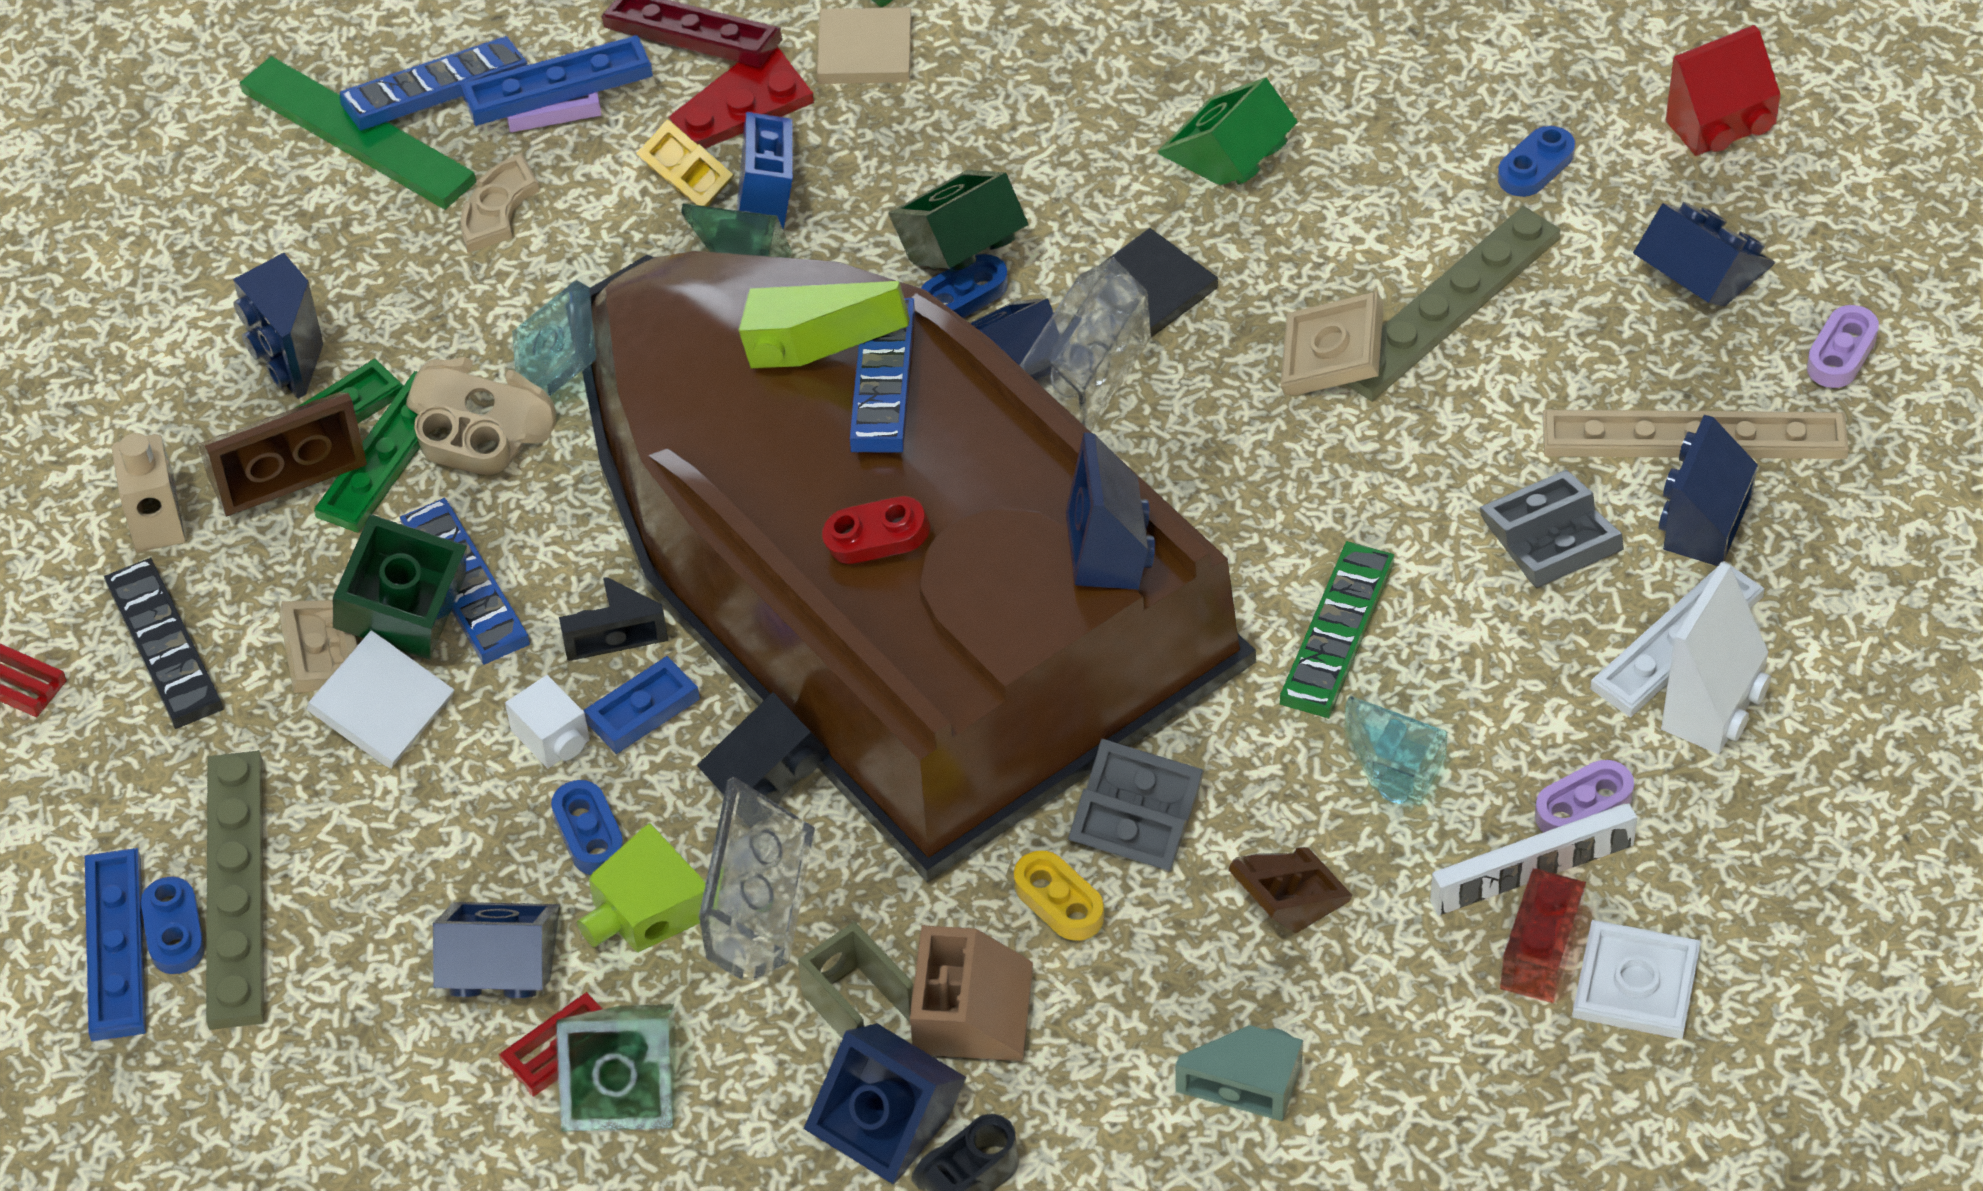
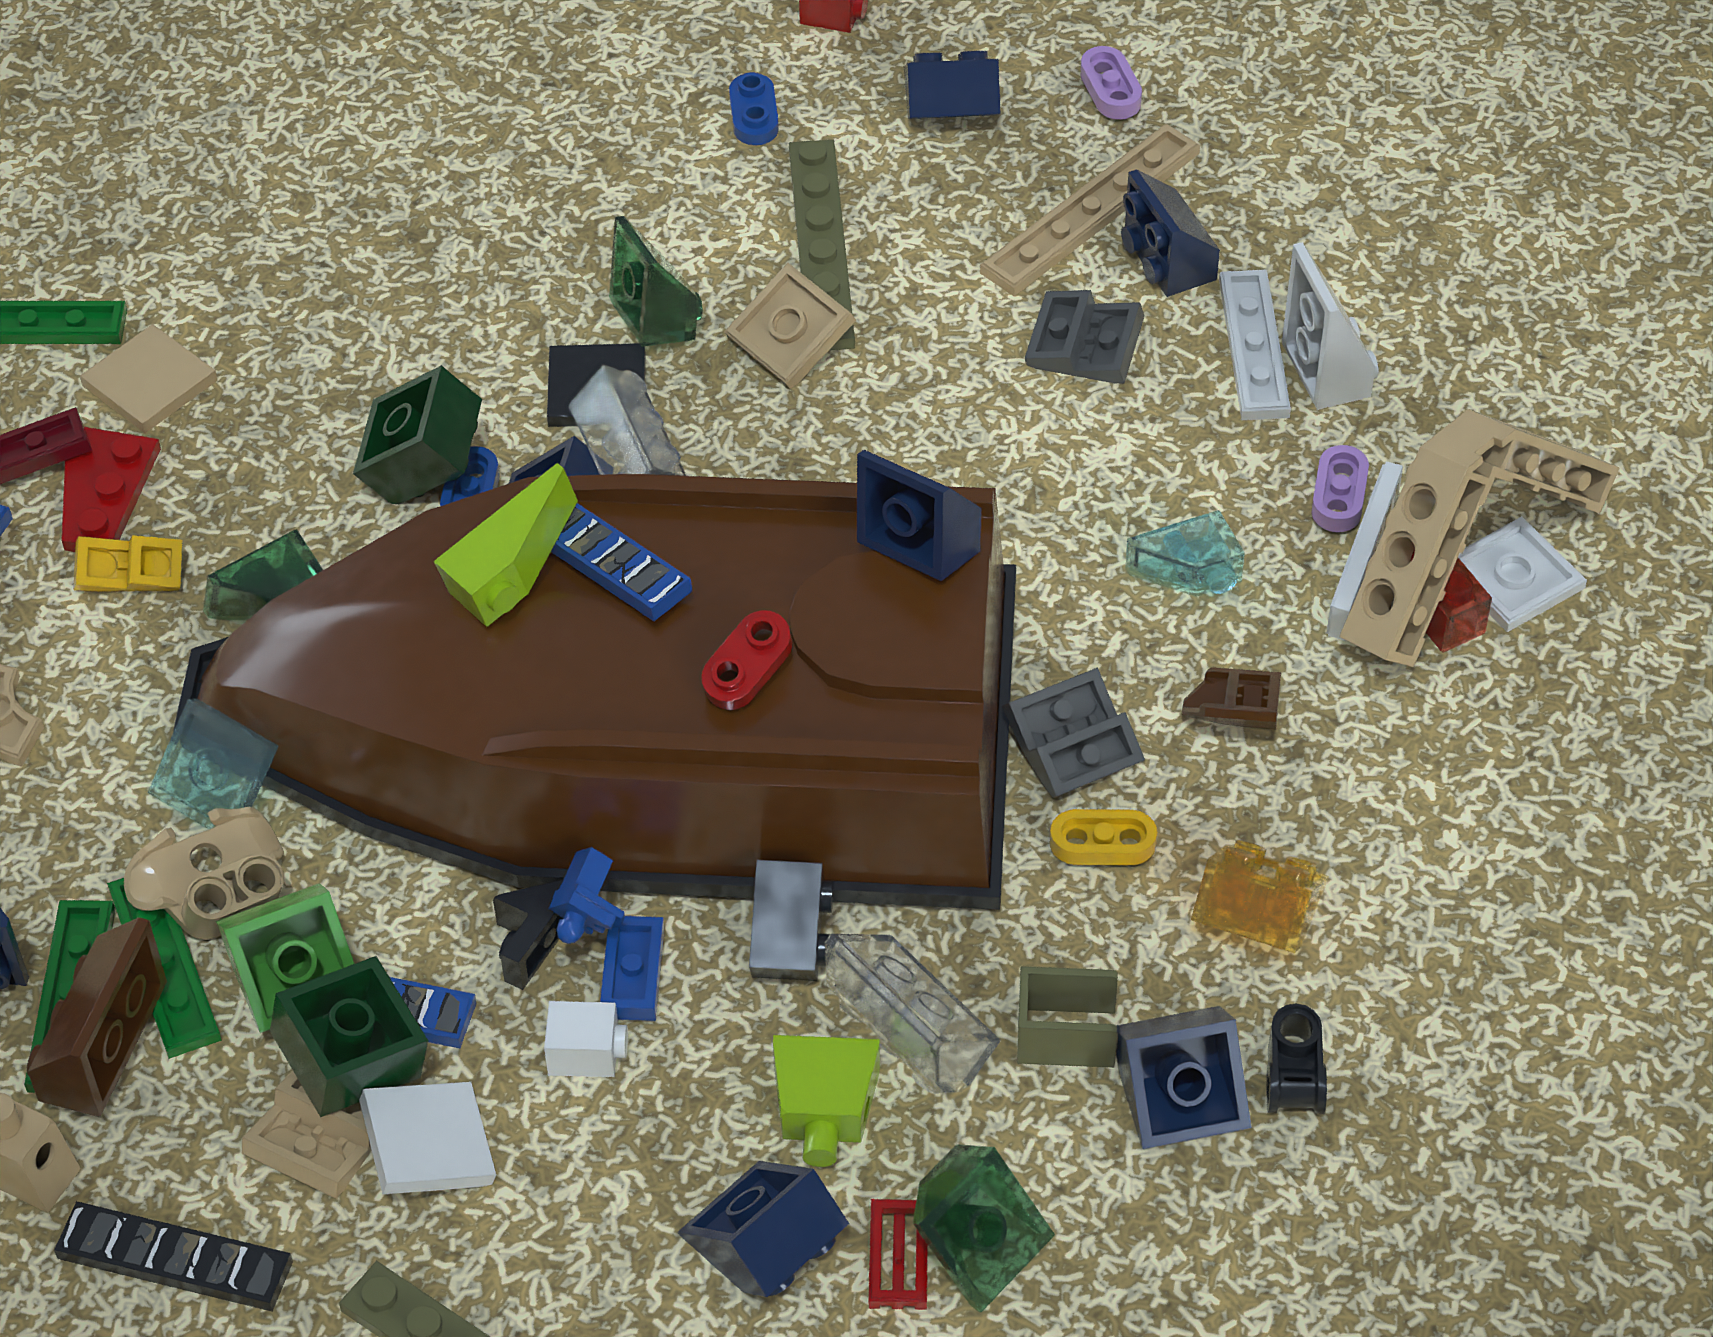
camera: 50 degrees left, 0 degrees up
(445, 496) = (284, 946): none -> bright green slope
(588, 830) = (716, 1084): blue plate -> none
(639, 622) = (579, 899): none -> blue piece
(766, 166) = (208, 519): blue slope -> none
(969, 995) = (1150, 950): medium nougat slope -> none
(1104, 1030) = (1259, 895): none -> clear yellow slope
(1232, 133) = (522, 238): green slope -> none
(1244, 1071) = (1383, 837): sand green slope -> none
(1259, 239) = (650, 291): none -> clear green slope
(1337, 629) = (1039, 512): tile -> none
(1588, 841) = (1456, 475): none -> tan brick

